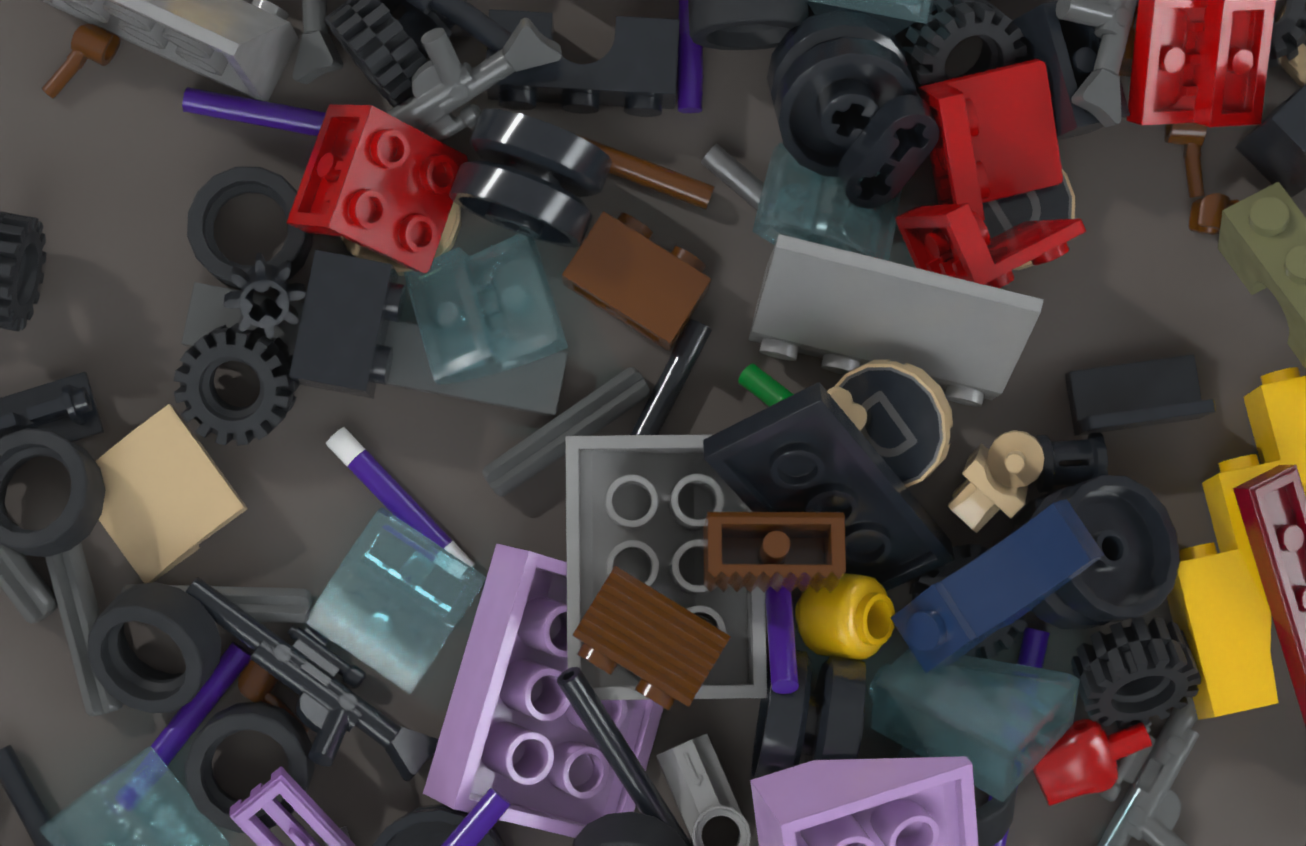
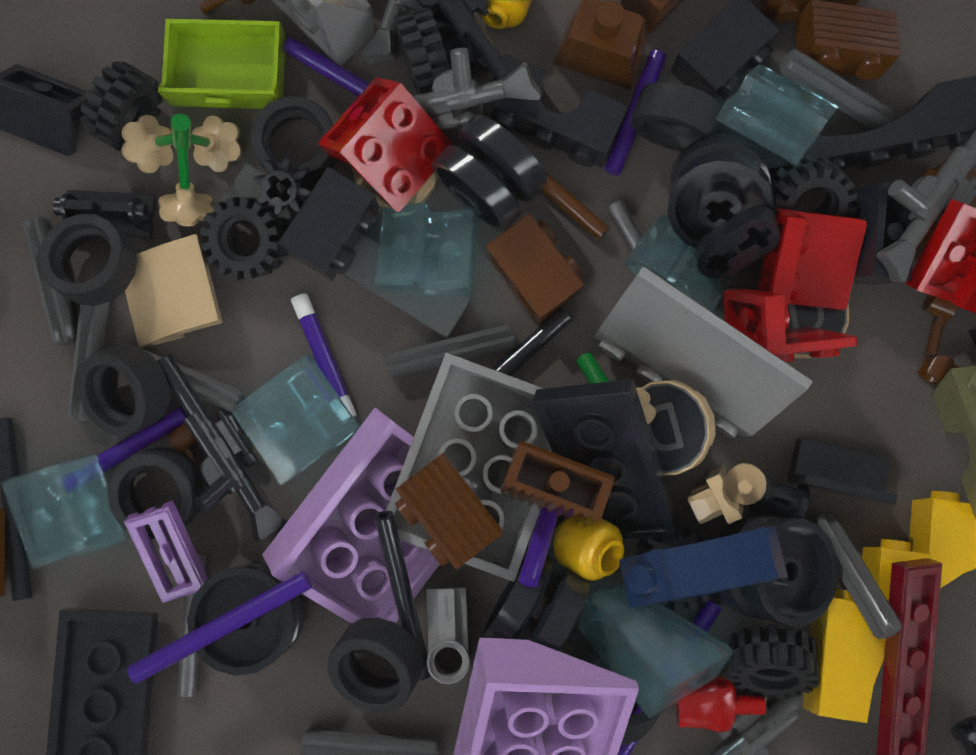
camera: 30 degrees right, 0 degrees up
(110, 159) = (222, 63): none -> lime container
(133, 276) = (150, 147): none -> tan plant
(1202, 524) = (859, 580): none -> dark grey axle

